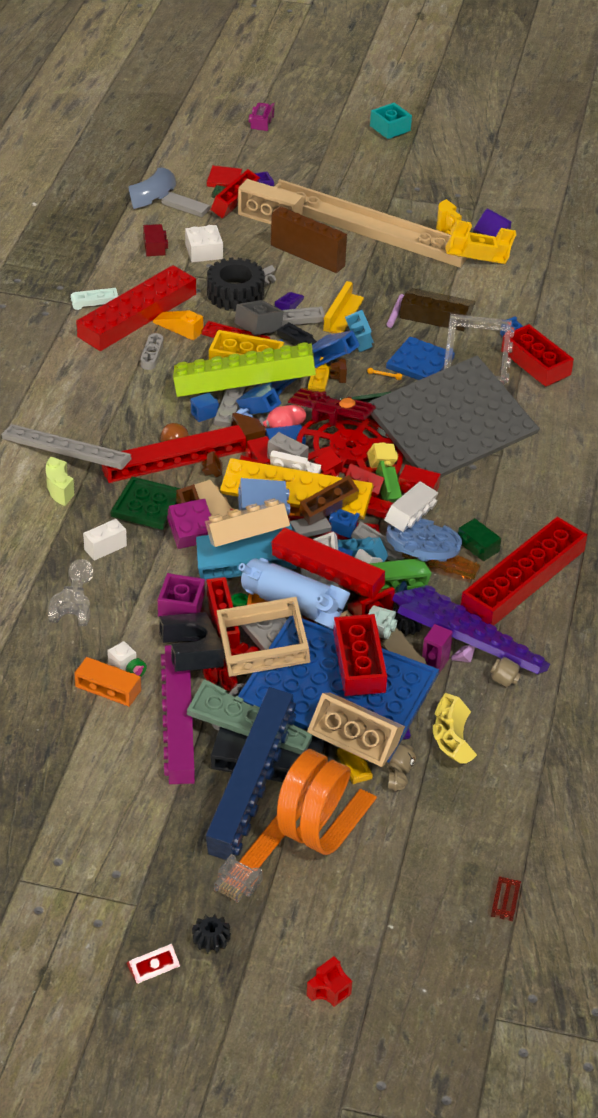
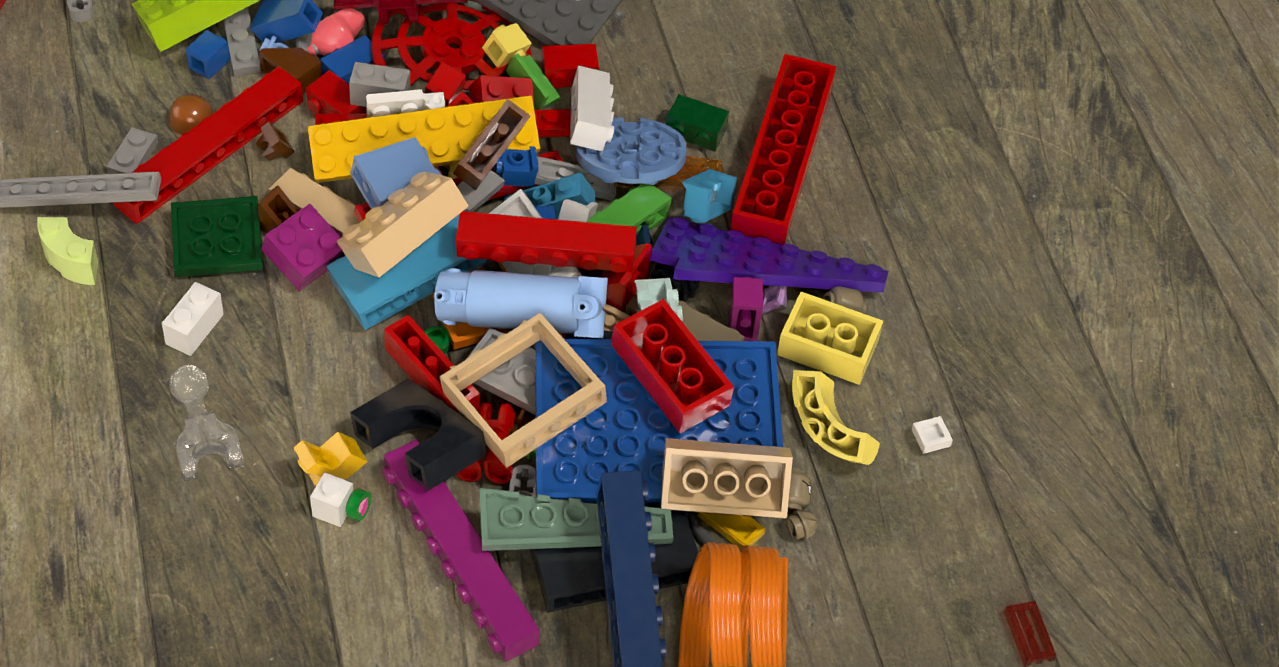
camera: 30 degrees left, 10 degrees up
(108, 681) = (331, 542): orange brick -> none
(132, 441) = (132, 152): none -> light grey plate
(140, 639) = (337, 457): none -> yellow brick
(181, 595) = (358, 367): magenta brick -> none
(454, 578) = (708, 195): none -> dark azure window
(482, 684) = (829, 338): none -> light yellow brick
(515, 764) = (932, 434): none -> white plate

